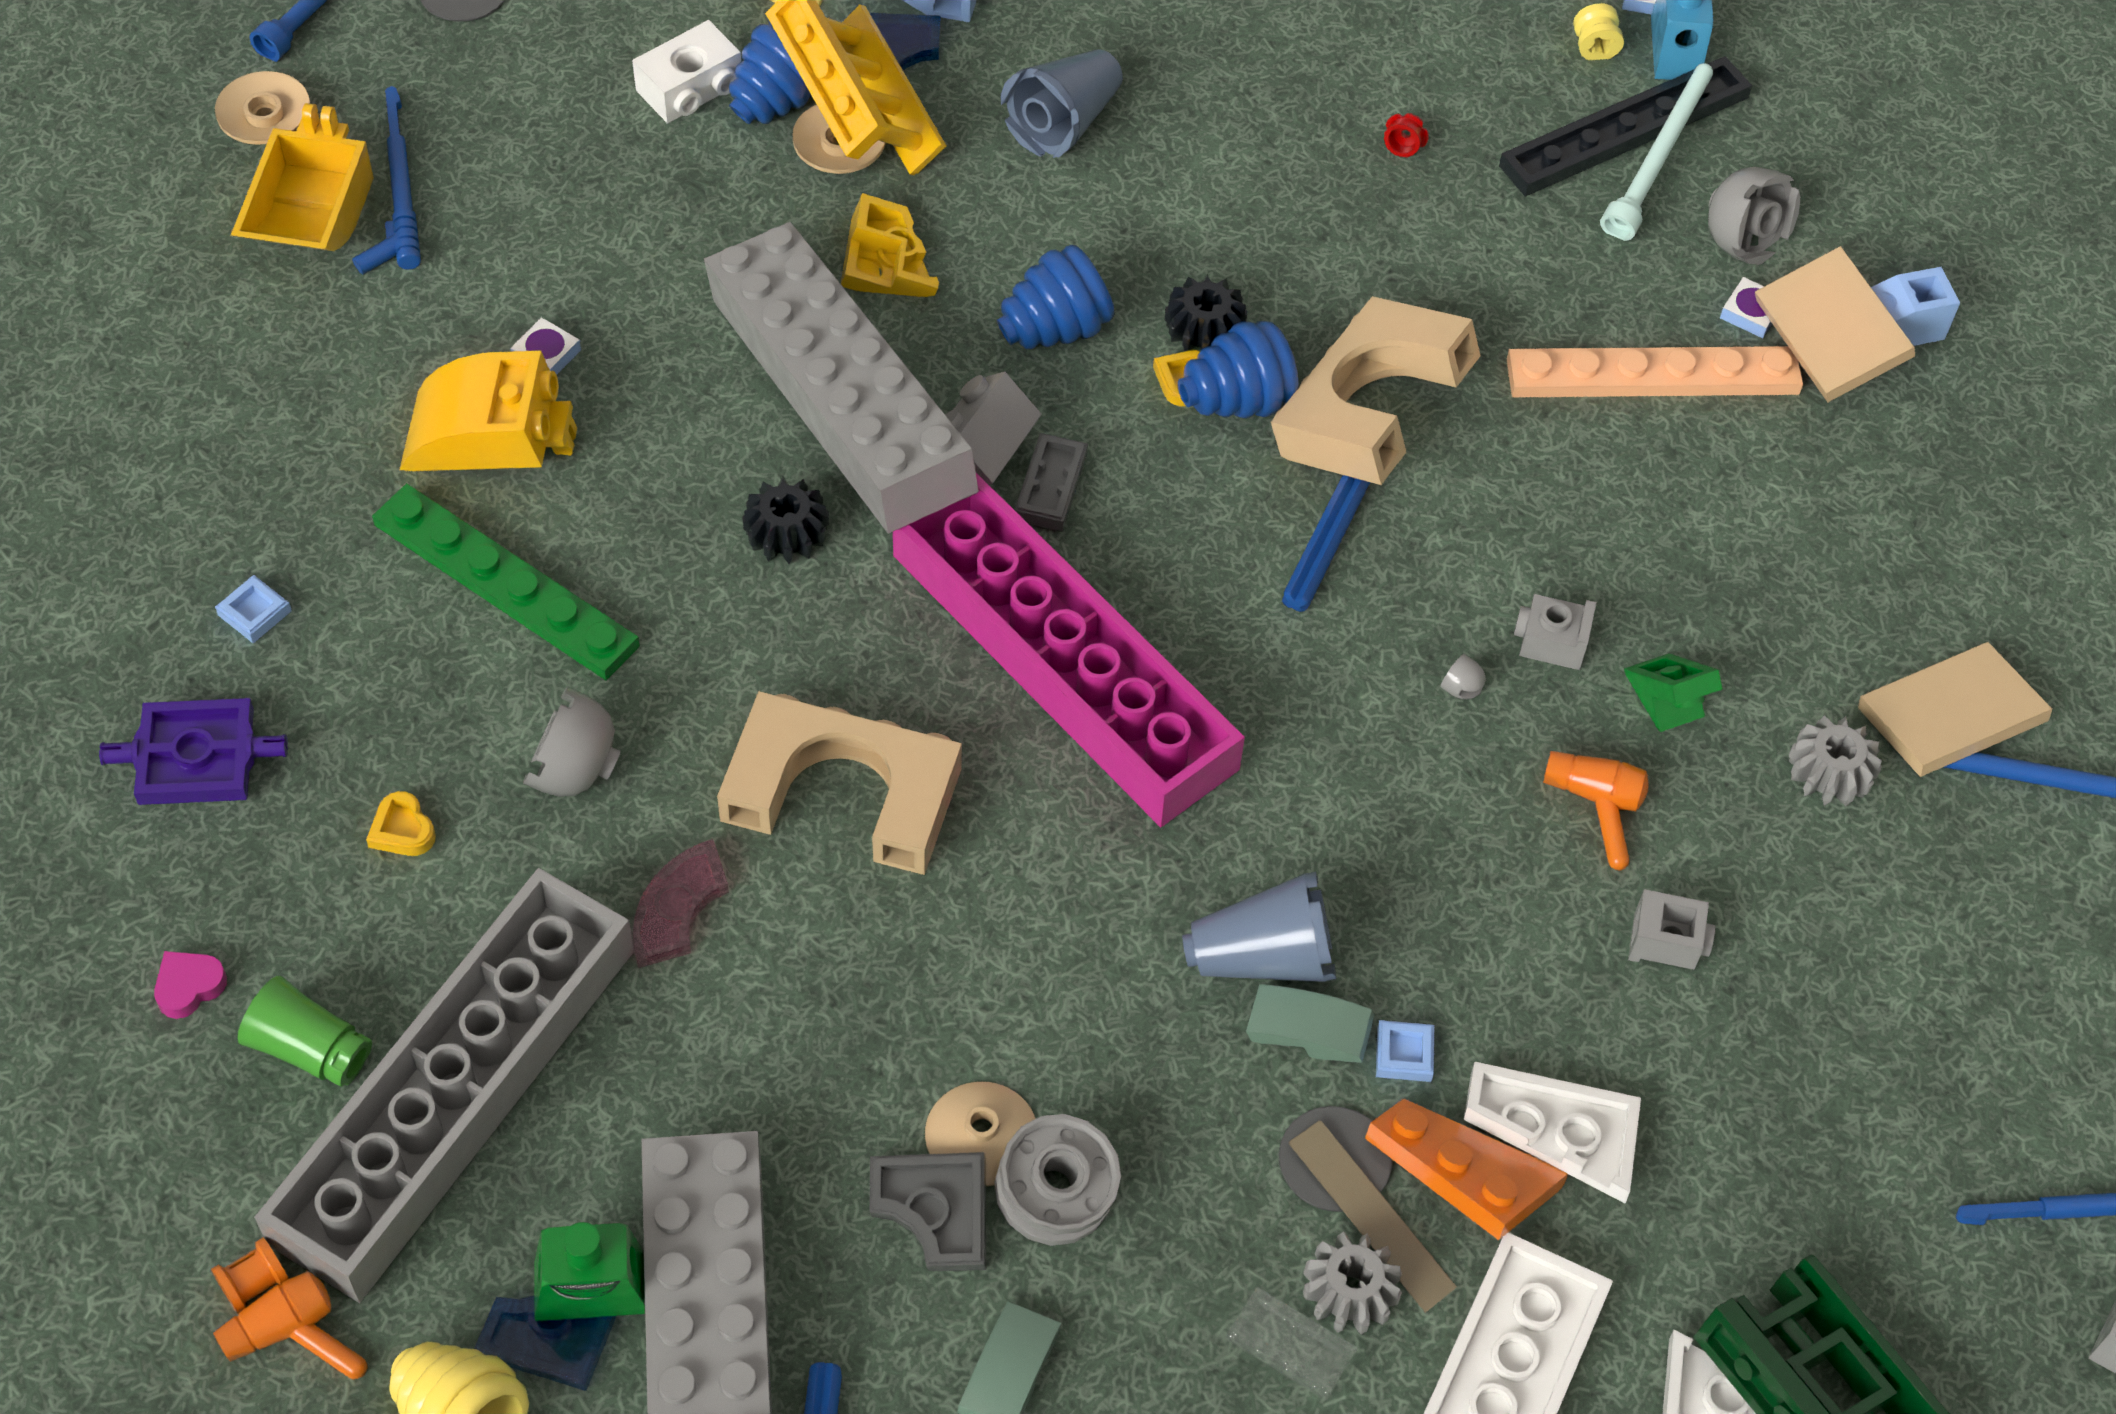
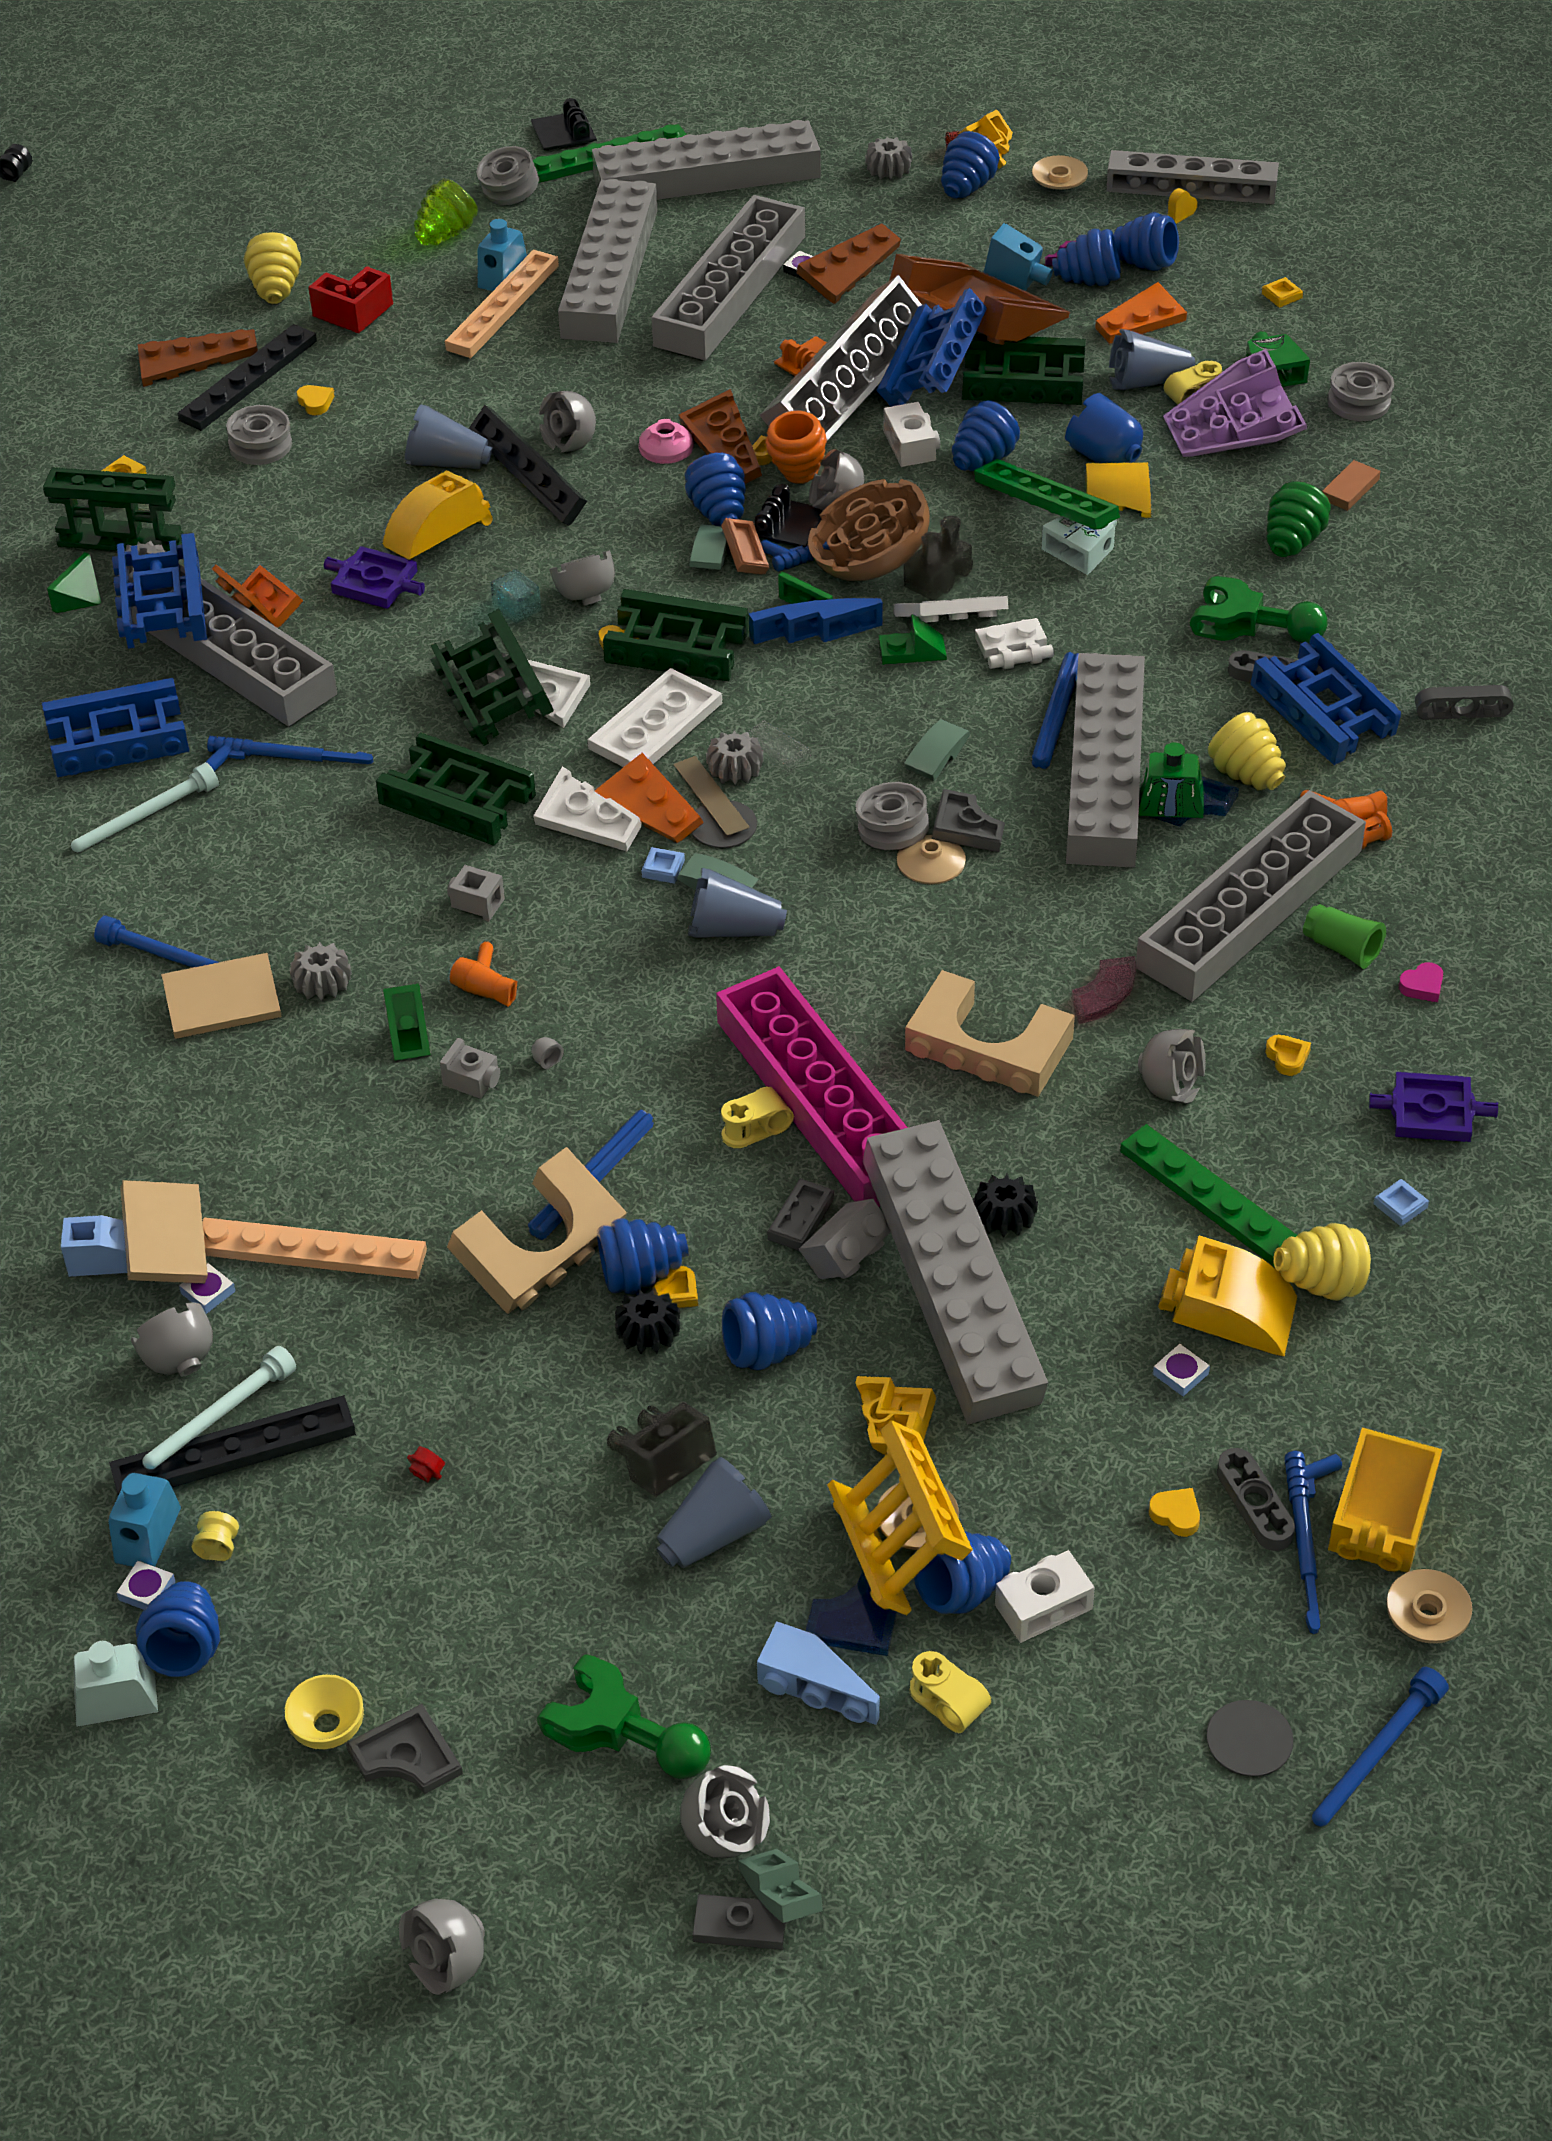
camera: 165 degrees left, 10 degrees down
(361, 459) = (1326, 1261): none -> light yellow piece
(455, 193) = (1255, 1482): none -> dark grey beam
(546, 189) = (1176, 1510): none -> yellow tile
(1140, 150) = (666, 1446): none -> clear smoke brick
(1153, 597) = (757, 1114): none -> light yellow piece
(1798, 1104) = (450, 808): none -> dark green fence

